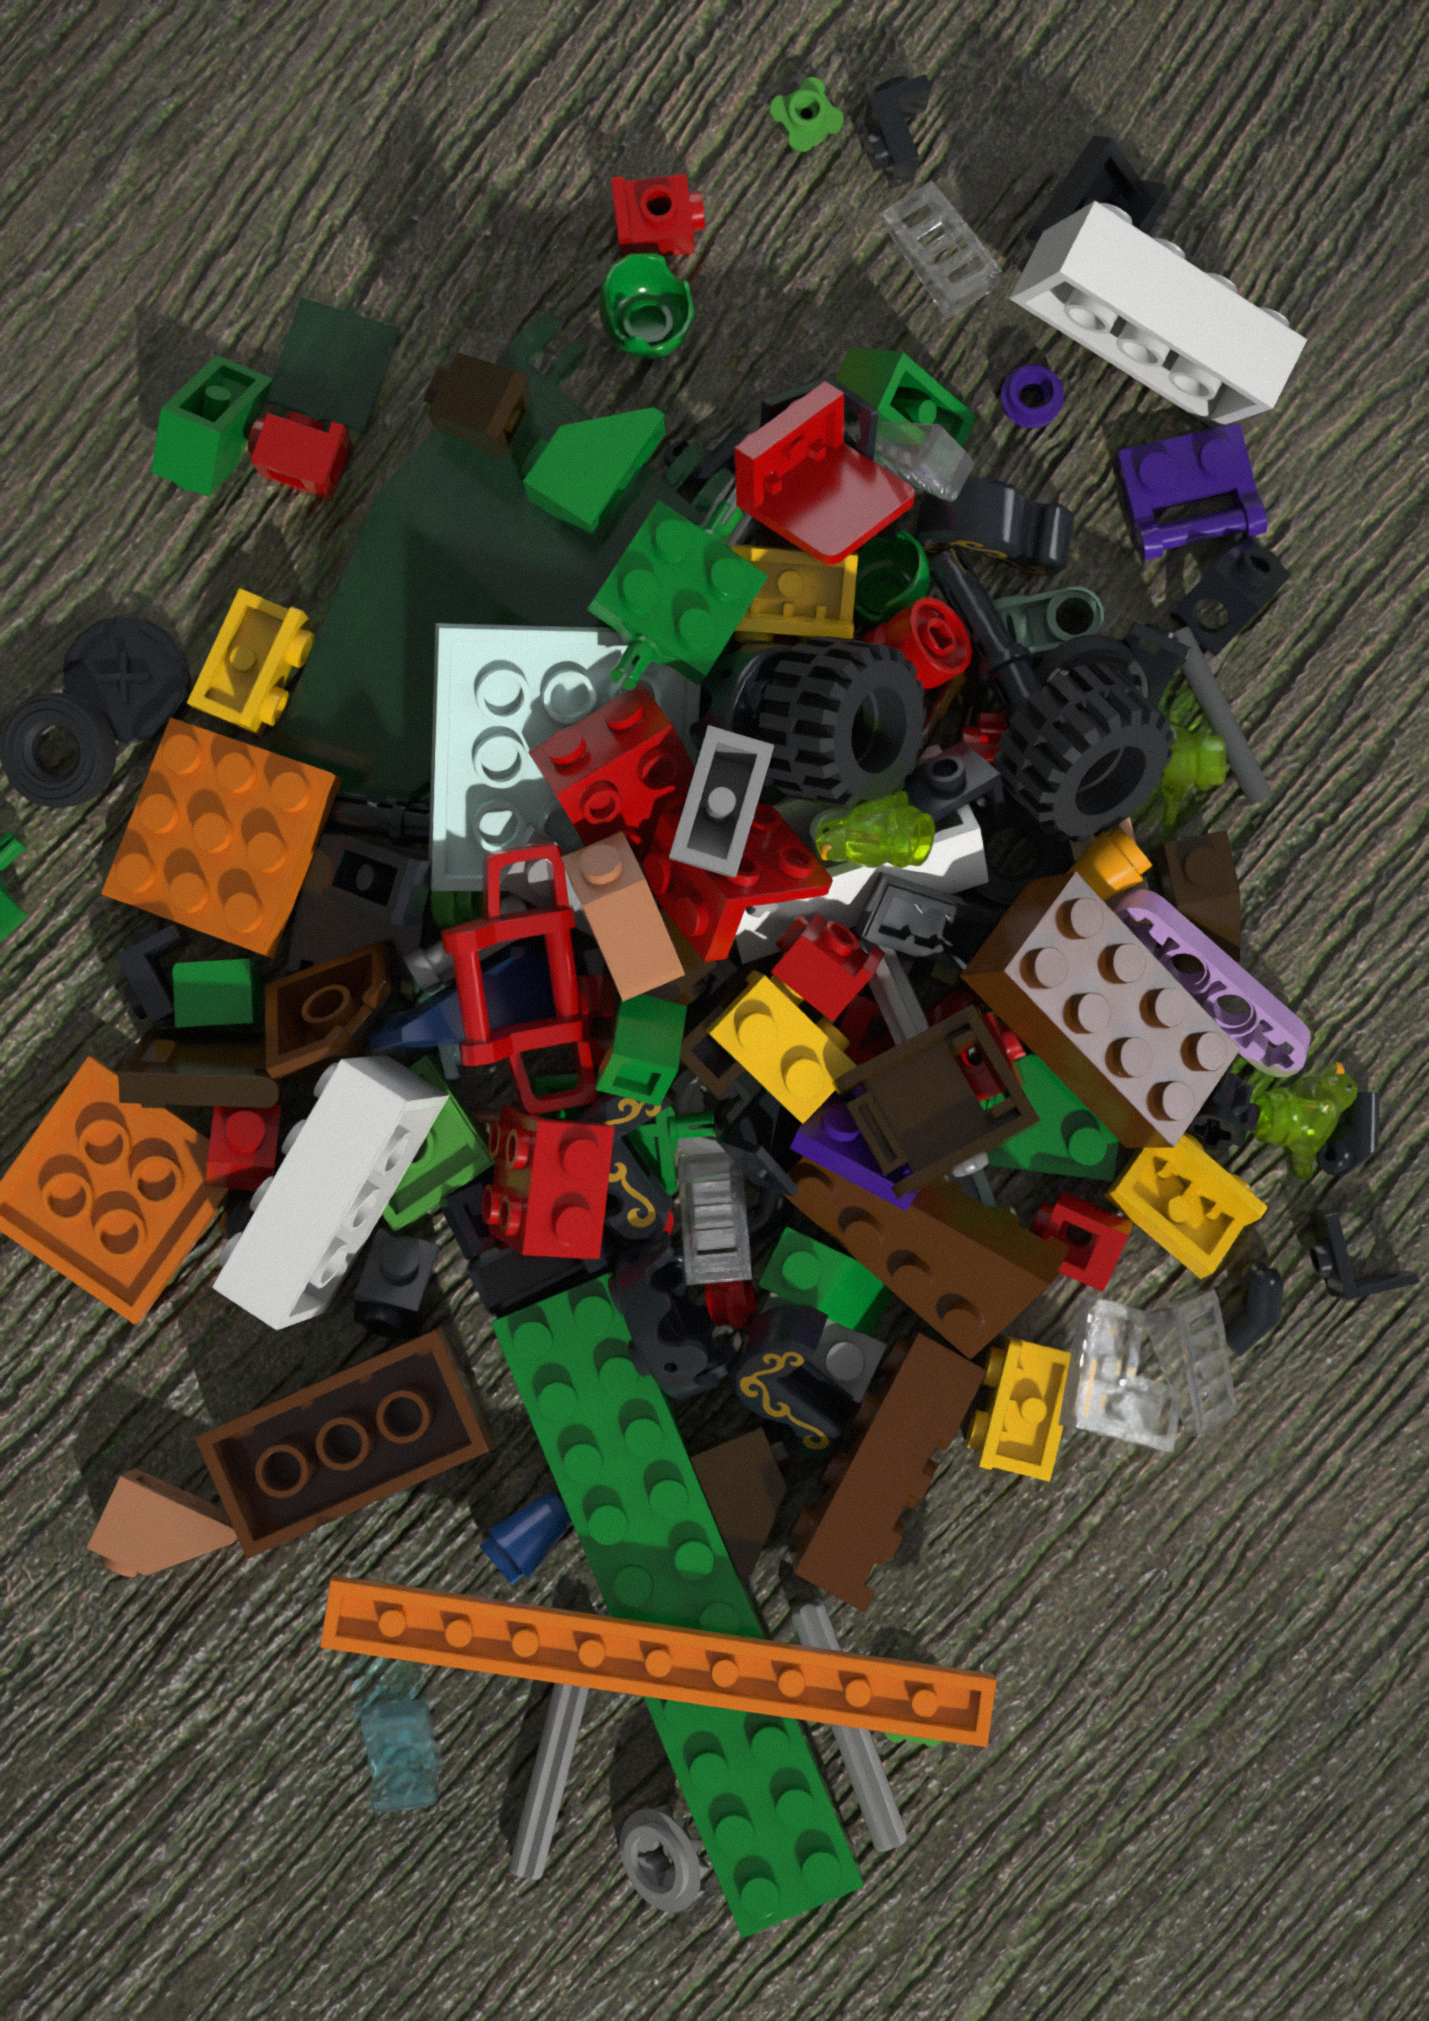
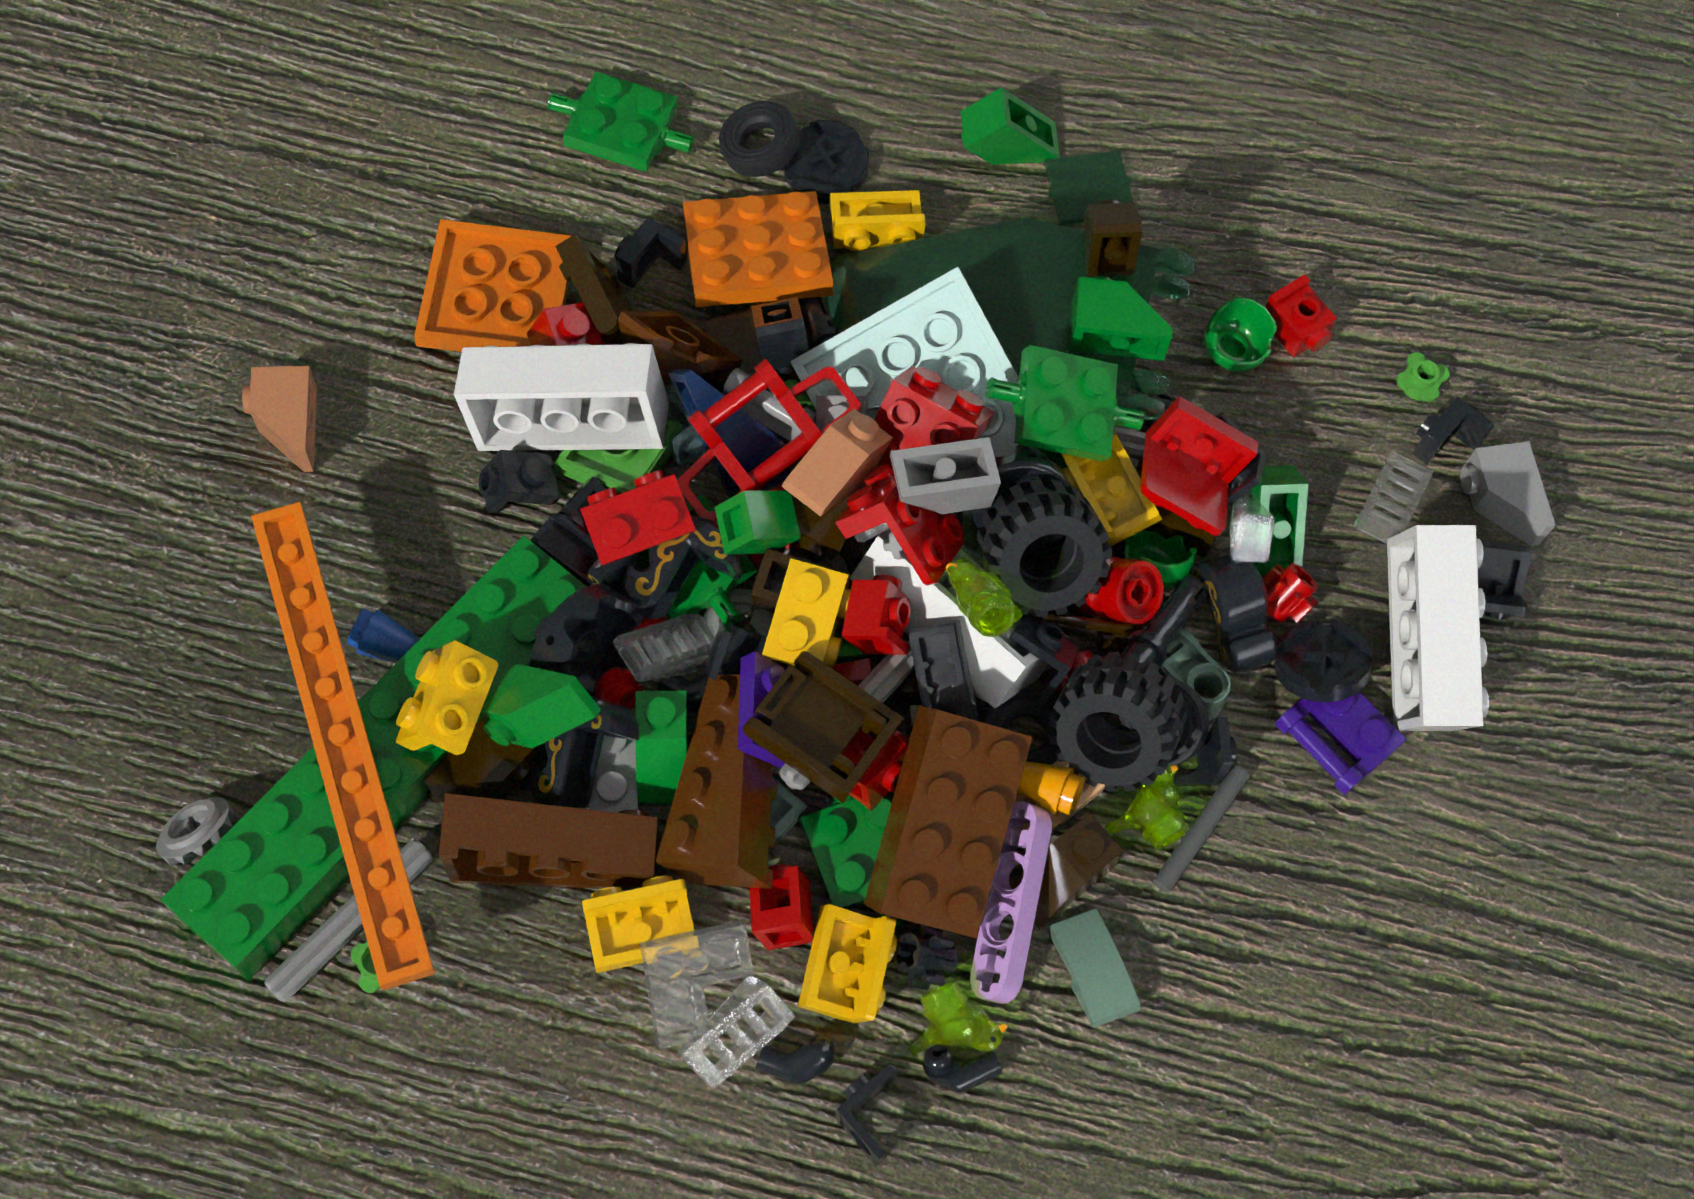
camera: 60 degrees right, 20 degrees down
(218, 994) = (654, 286): green panel -> none
(300, 453) = (1024, 187): red brick -> none
(346, 1441) = (399, 491): reddish brown brick -> none
(401, 1755) = (195, 627): clear light blue bracket -> none
(548, 1781) = (223, 733): light grey axle -> none
(679, 1520) = (447, 698): none -> yellow bracket
(733, 1425) = (534, 706): none -> green slope
(1005, 449) = (1289, 592): none -> red gear
(1007, 107) = (1509, 490): none -> light grey slope
(1038, 379) = (1344, 589): dark purple plate -> none
(1105, 461) = (1323, 661): none -> black tile
(1241, 583) = (1297, 788): black bracket -> none
(1318, 928) = (1095, 968): none -> sand green slope

